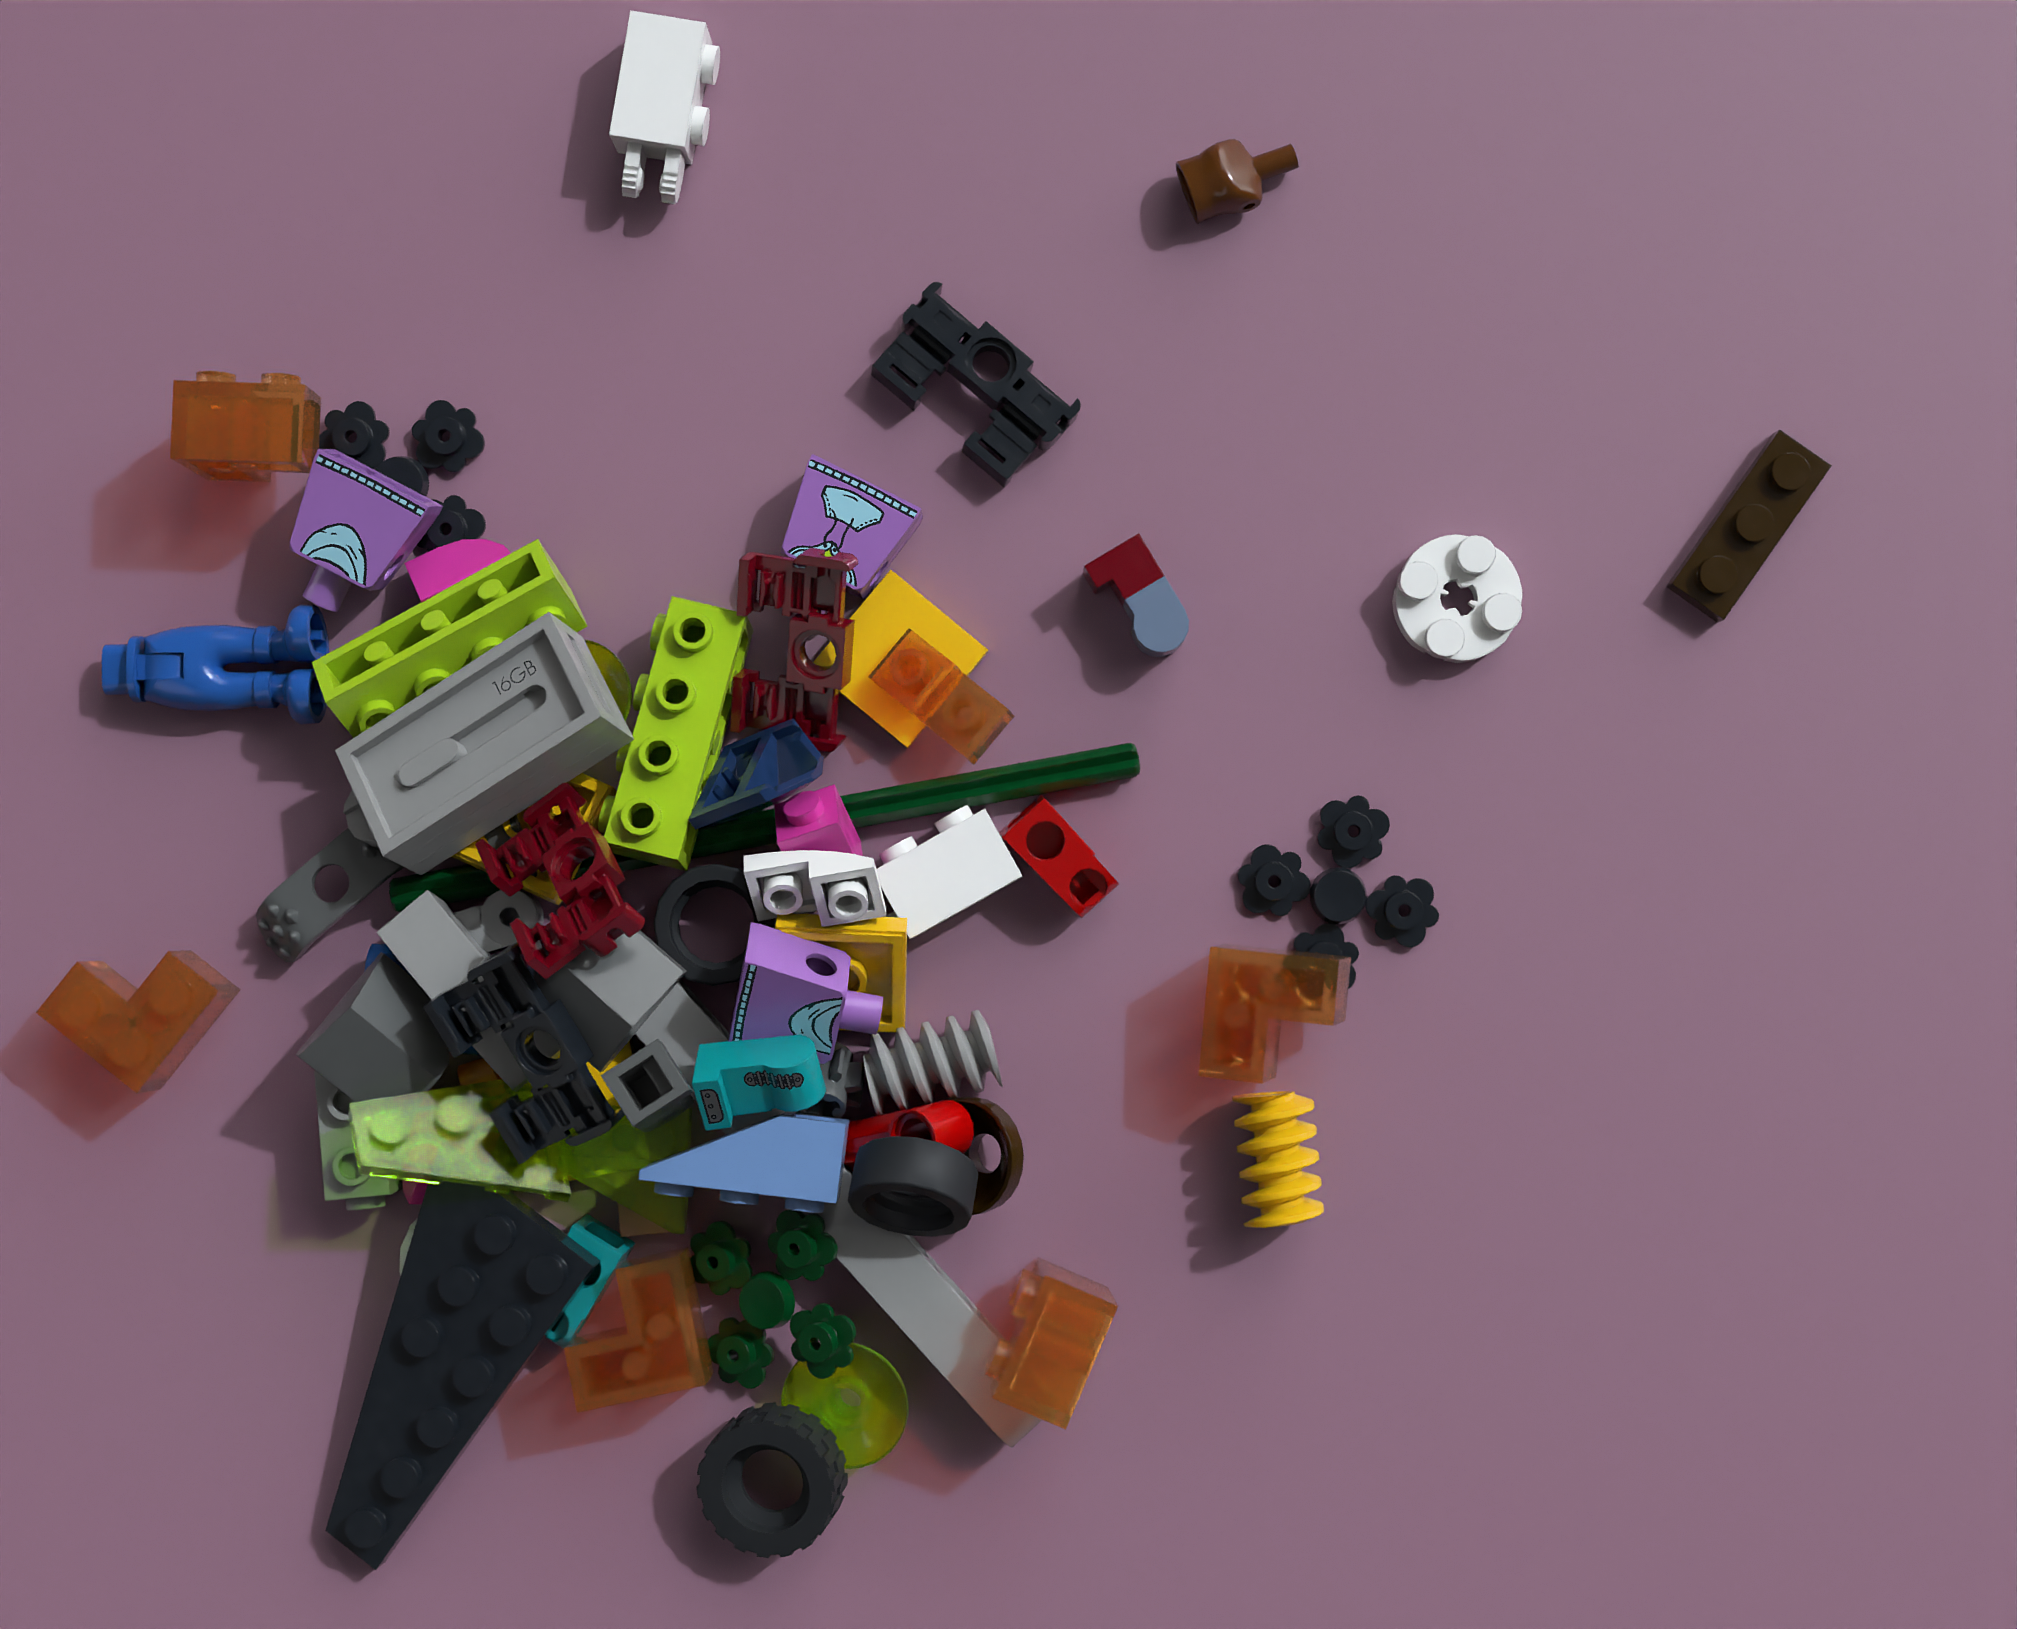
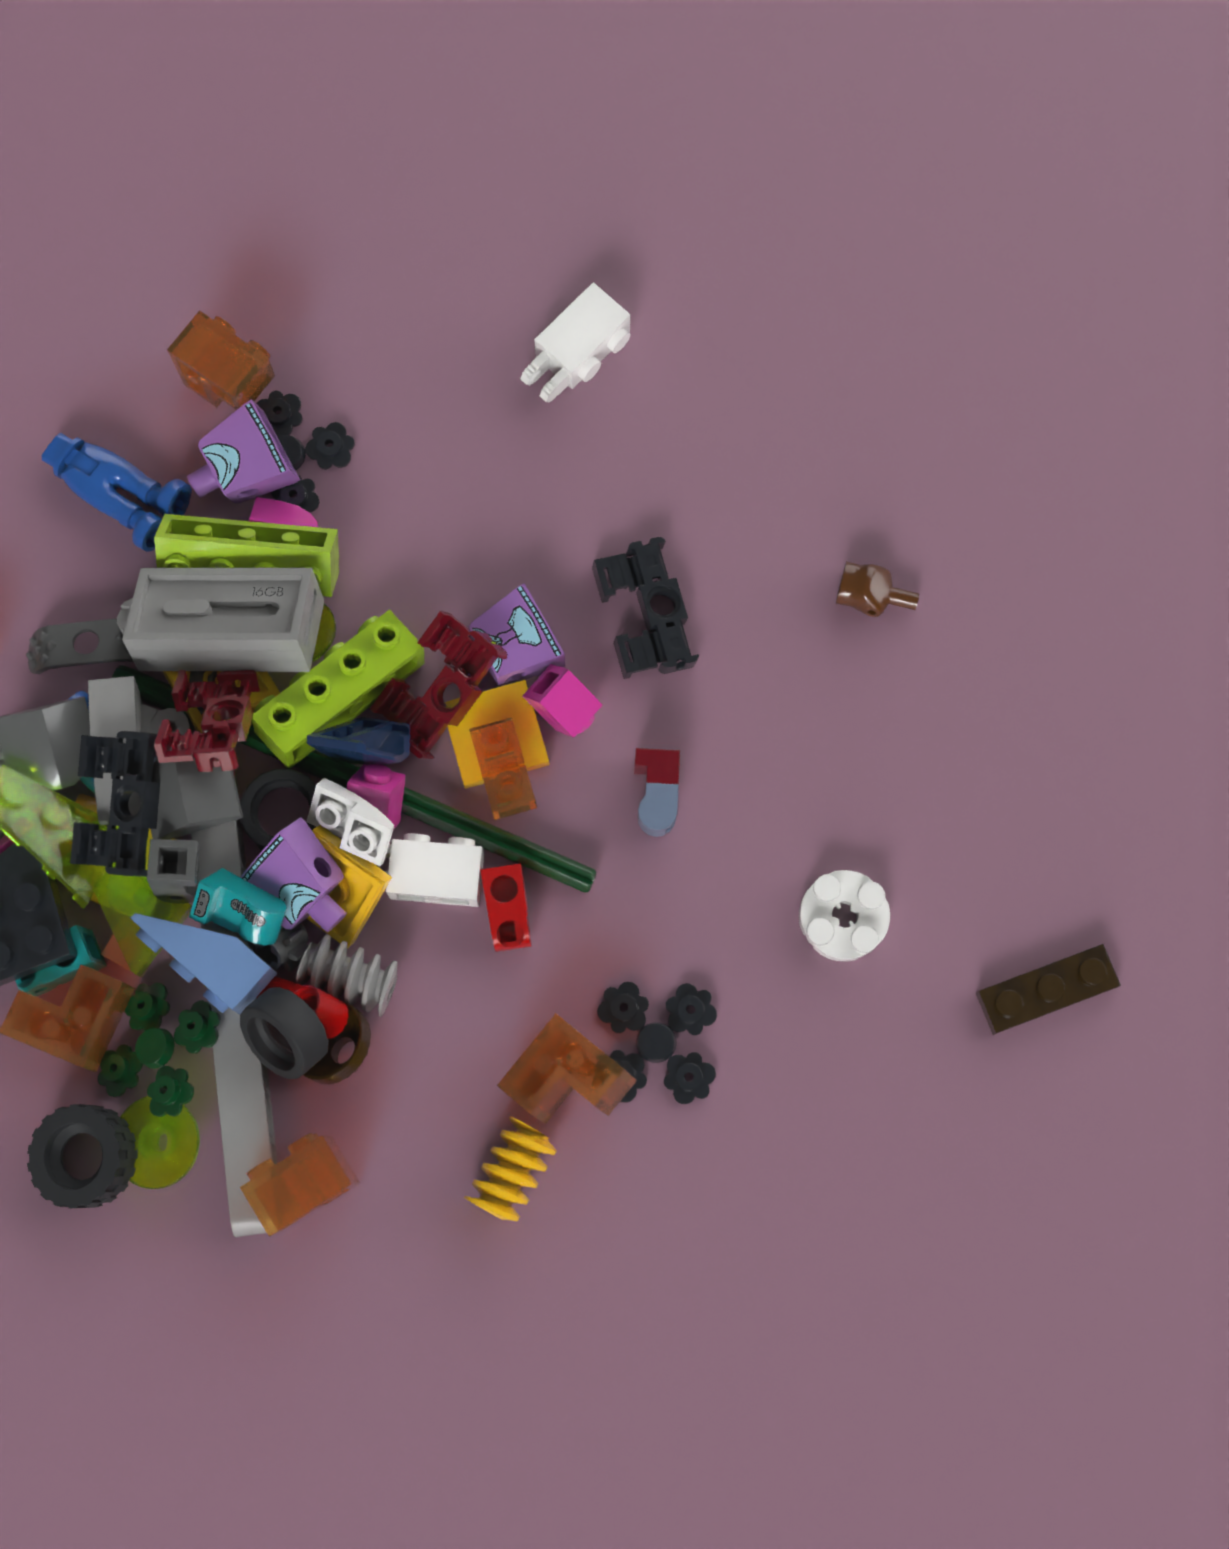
camera: 35 degrees right, 10 degrees down
(956, 566) = (563, 701): none -> dark pink brick

